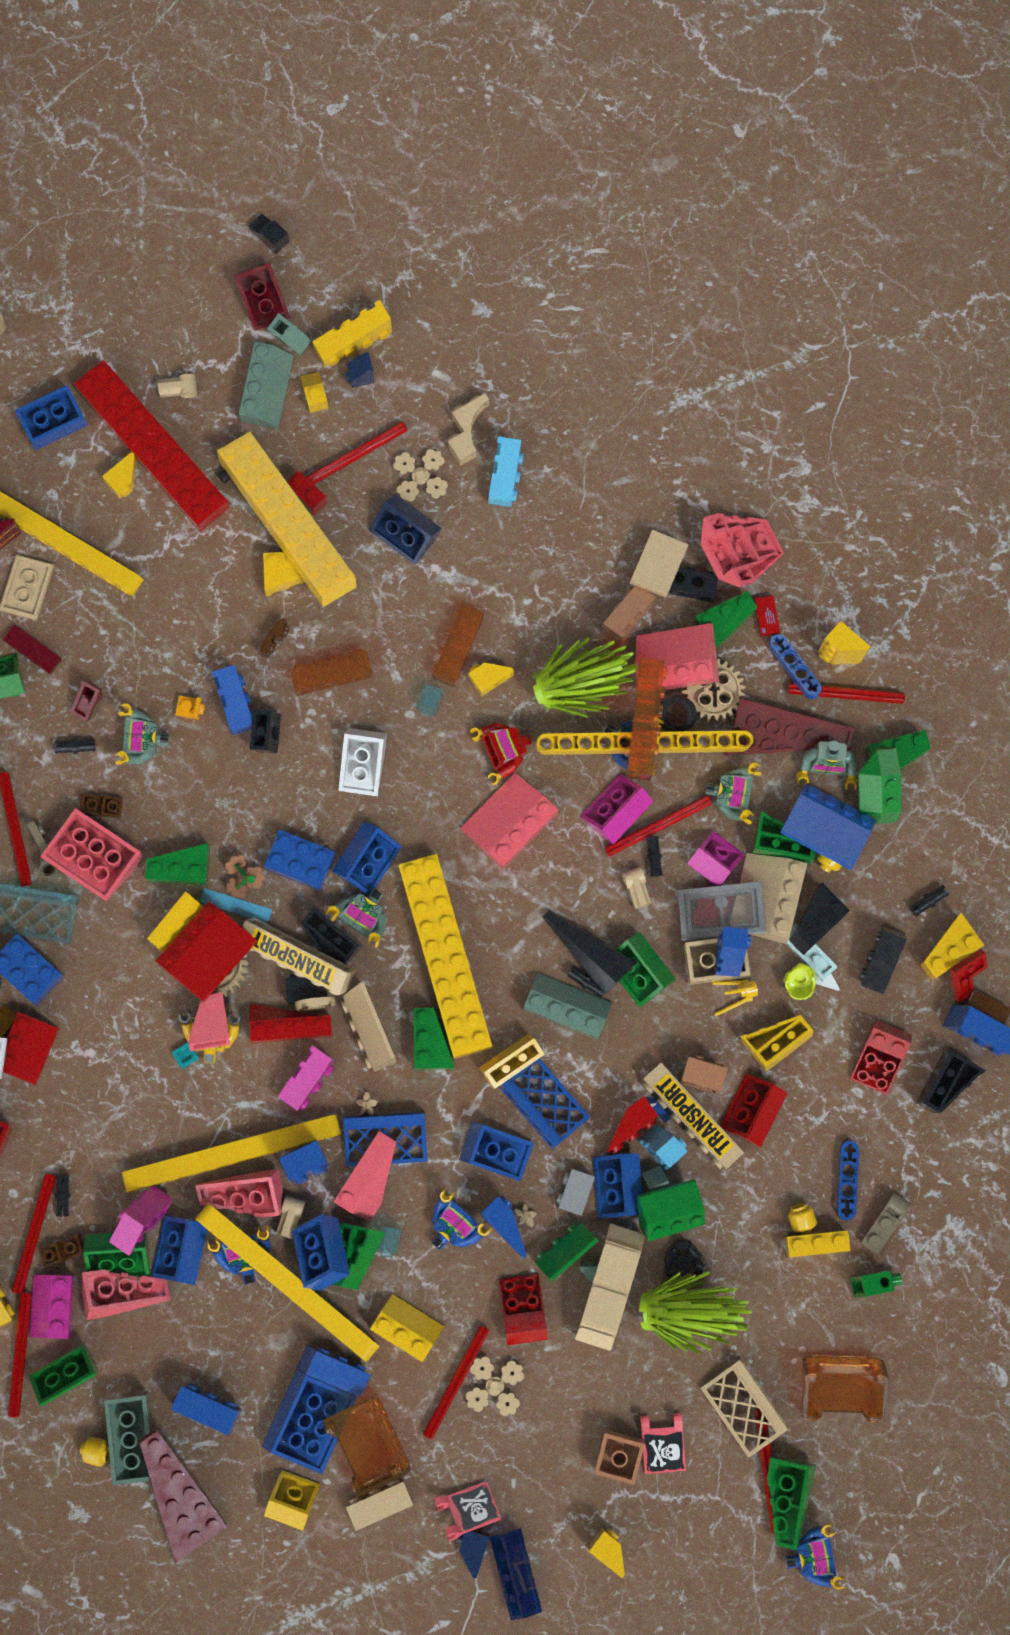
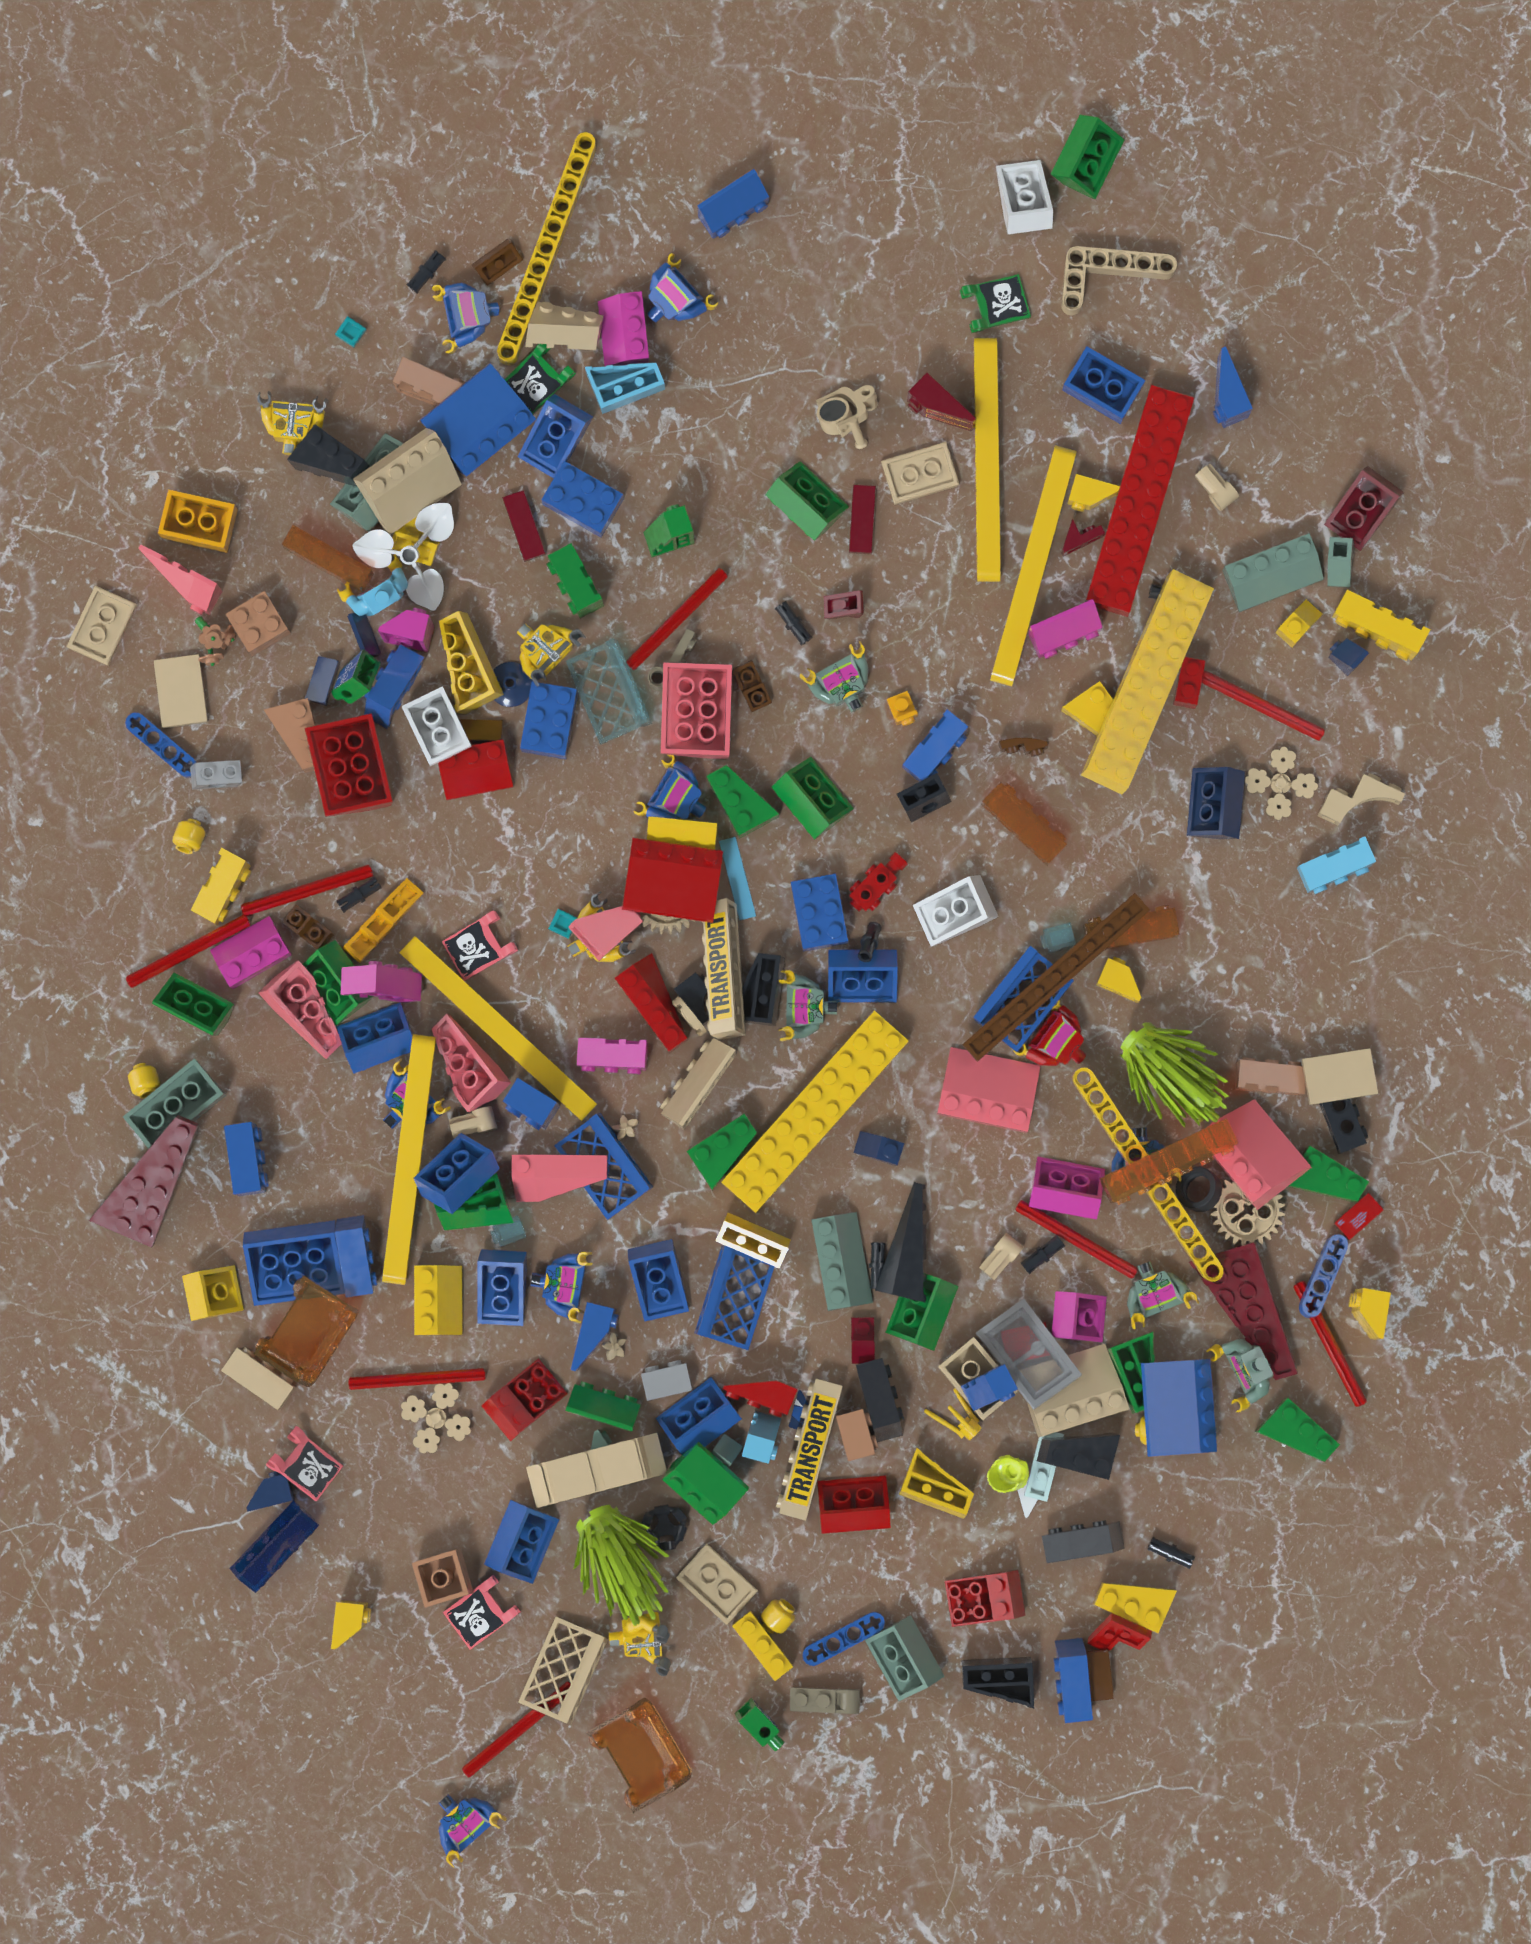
camera: 65 degrees right, 5 degrees up
(94, 1189) = (383, 920): none -> light orange slope
(119, 334) = (1230, 396): none -> blue slope
(143, 910) = (675, 795): none -> blue torso
(148, 549) = (1033, 565): none -> yellow beam
(150, 507) = (1075, 540): none -> dark red slope
(160, 1131) = (476, 947): none -> flag
(209, 554) = (1065, 629): none -> dark pink slope
(212, 813) = (812, 797): none -> green slope
(253, 876) = (773, 876): nougat plant -> none
(269, 233) = (1434, 473): black arch -> none
(305, 809) = (874, 887): none -> red brick
(345, 837) = (869, 941): none -> black pin
(427, 1273) = (501, 1287): none -> blue slope
(443, 760) = (1007, 987): none -> blue fence
(458, 718) = (1056, 977): none -> reddish brown plate
(501, 926) = (879, 1148): none -> dark blue slope
(628, 1379) = (521, 1542): none -> blue slope
(635, 1027) = (862, 1340): none -> dark red slope
(687, 1040) = (880, 1399): none -> black wedge
(739, 547) = (1408, 1147): coral wedge -> none
(749, 1250) = (716, 1584): none -> tan tile
(761, 1331) = (644, 1641): none -> torso
(790, 1492) = (508, 1763): green wedge -> none
(881, 786) = (1252, 1434): green wedge -> none
(890, 1143) = (904, 1658): none -> sand green slope

